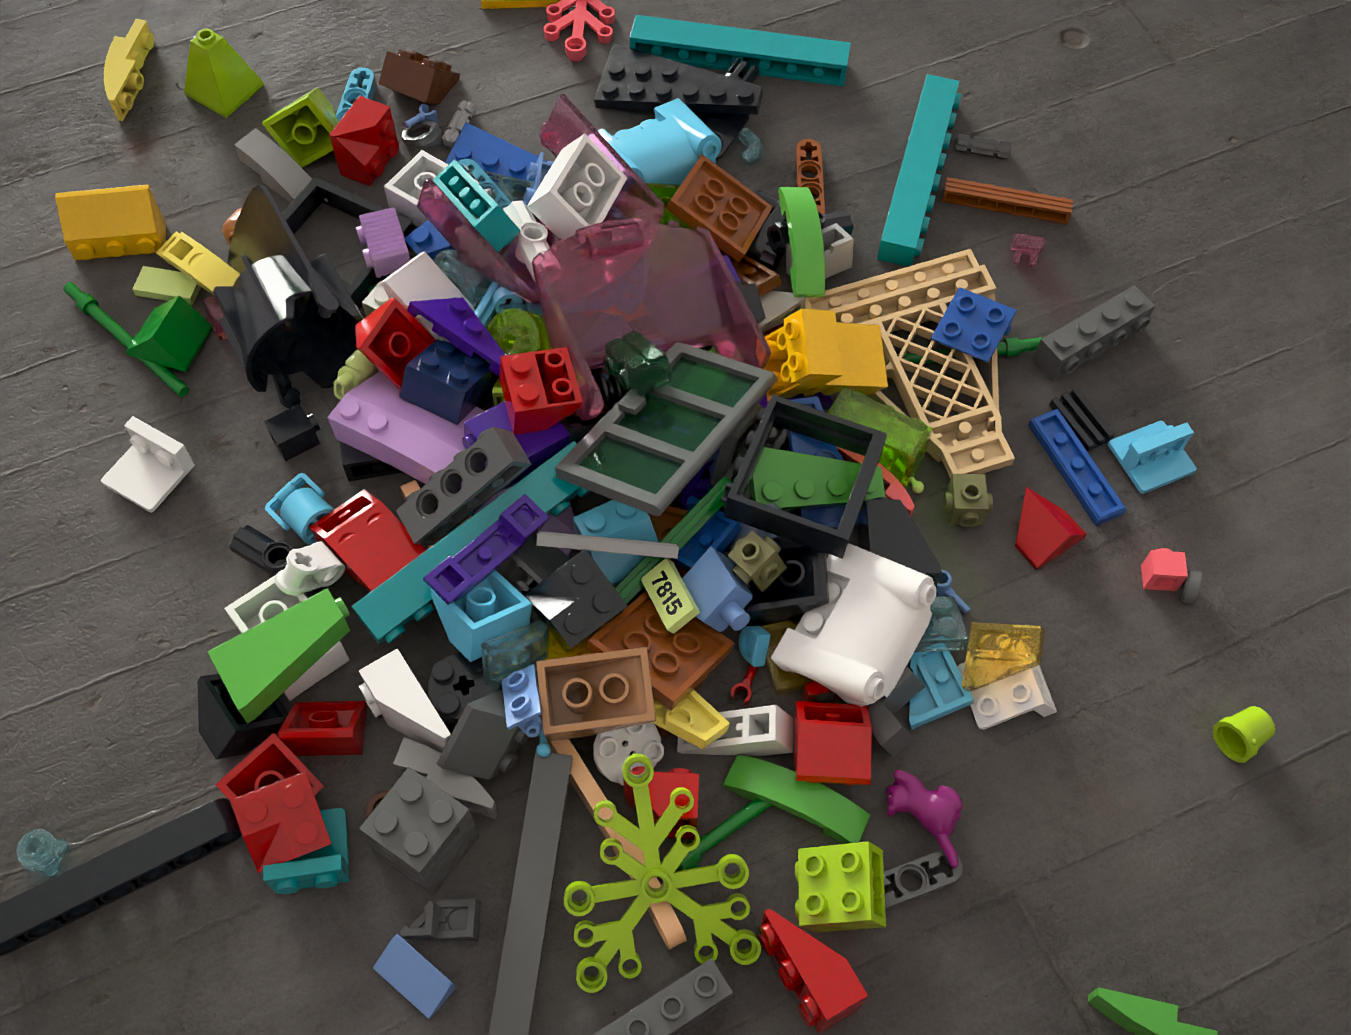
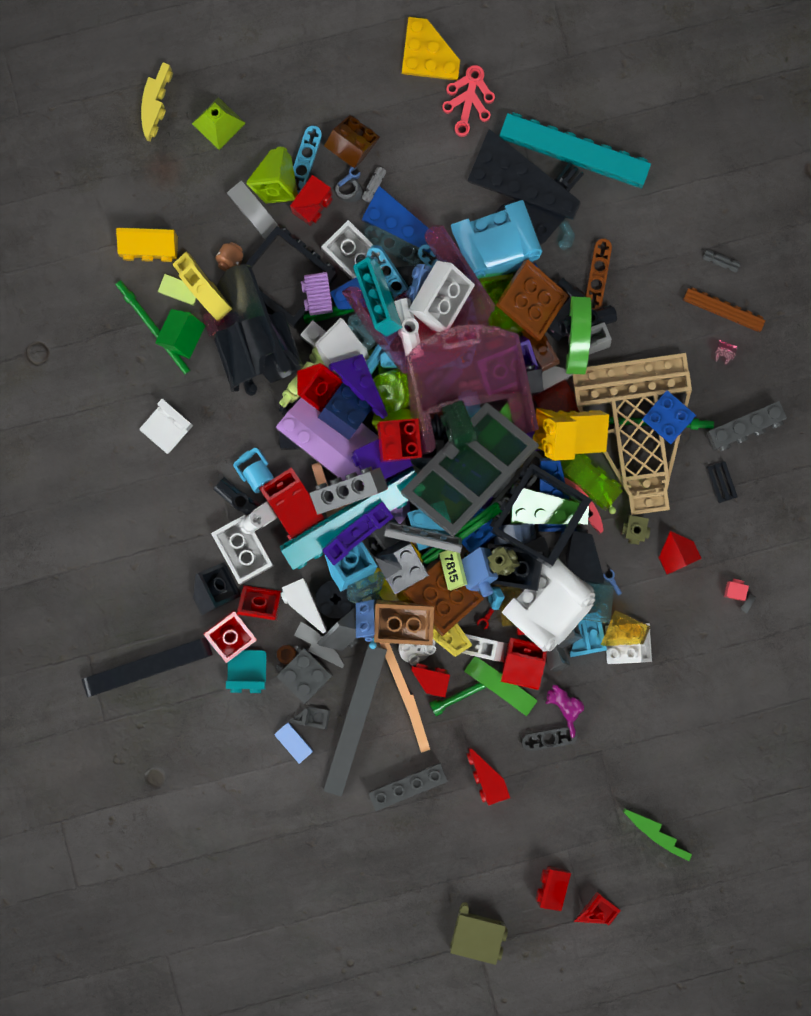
camera: 15 degrees right, 25 degrees up
(41, 851) = (117, 646): clear light blue brick -> none
(279, 651) = (238, 569): bright green slope -> none
(281, 821) = (236, 659): red slope -> none
(293, 432) = (252, 415): black brick -> none
(649, 837) = (419, 703): lime plant -> none
(840, 887) = (511, 739): lime brick -> none
(918, 171) = (672, 276): teal brick -> none
(1077, 467) = (709, 513): blue tile -> none
(1154, 455) = (755, 515): medium azure bracket -> none
(1243, 733) = (747, 692): lime piece -> none

